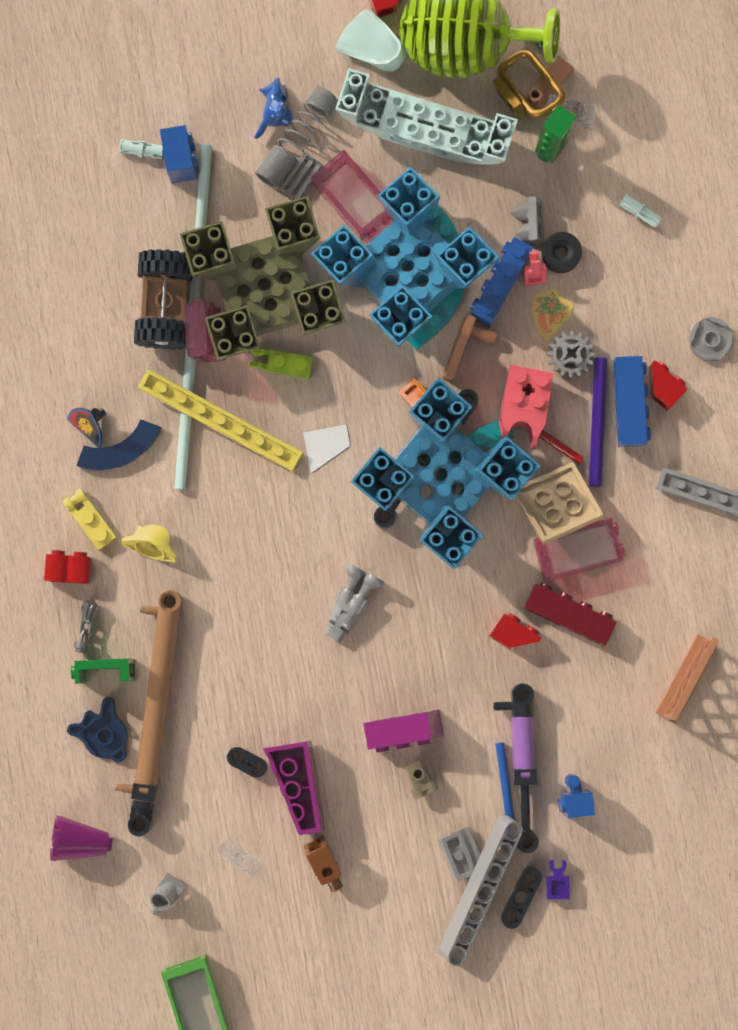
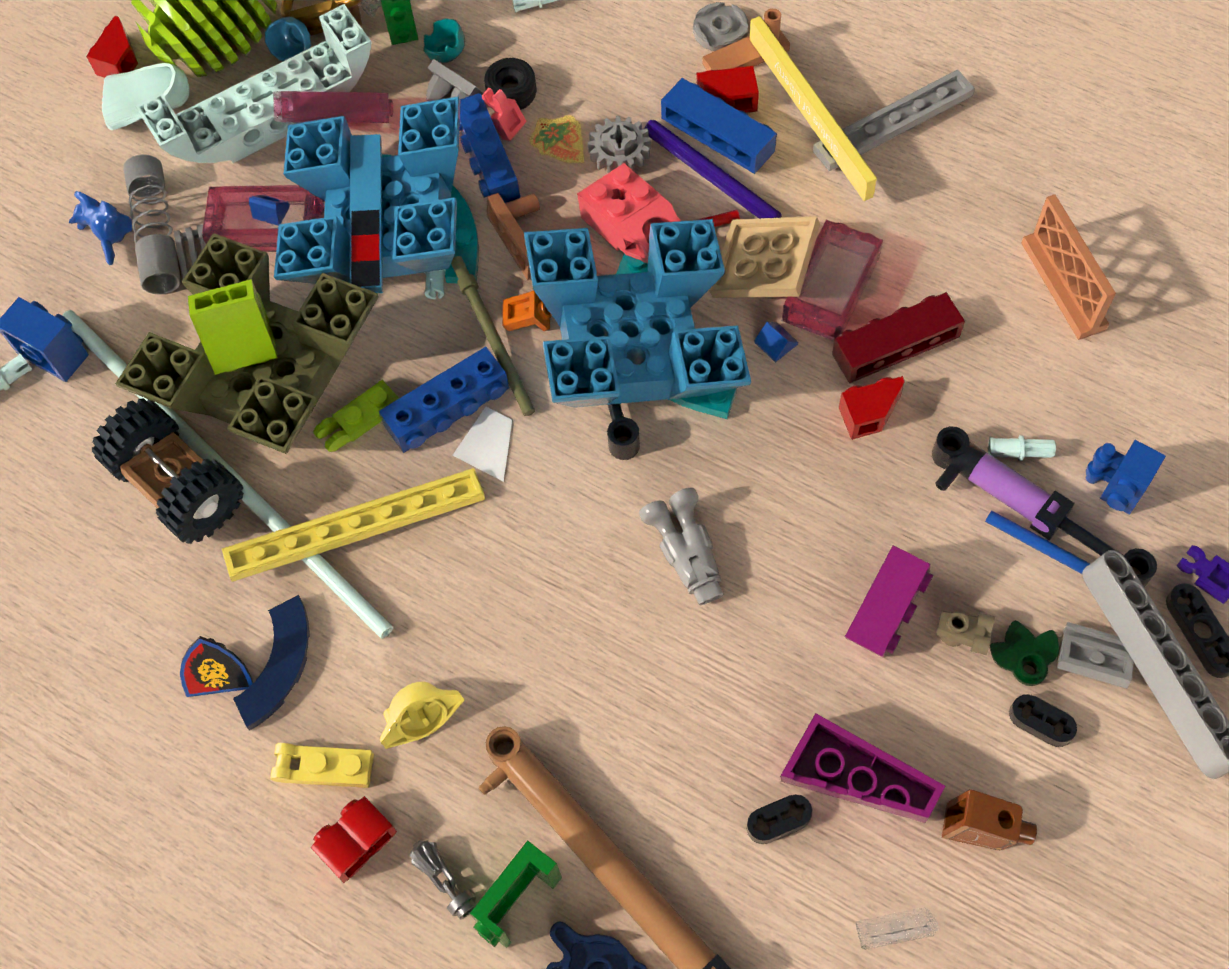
camera: 45 degrees left, 20 degrees down
(197, 335) = (244, 458): clear pink window -> none
(260, 265) = (232, 326): none -> lime brick
(327, 401) = (444, 399): none -> blue brick
(358, 198) = (268, 209): none -> blue slope
(393, 263) = (366, 212): none -> tile
(405, 353) = (468, 287): none -> olive bar
(409, 850) = (1047, 713): none -> black beam
(437, 815) = (1024, 649): none -> dark green plate
(448, 173) = (312, 106): none -> clear pink window
(481, 91) = (287, 38): none -> dark azure hair
(515, 548) = (775, 341): none -> blue slope
(554, 731) = (1021, 447): none -> light aqua axle
(557, 186) = (445, 41): none -> teal hair
(684, 447) = (813, 109): none -> light yellow tile
(703, 371) = (743, 51): none -> nougat piece

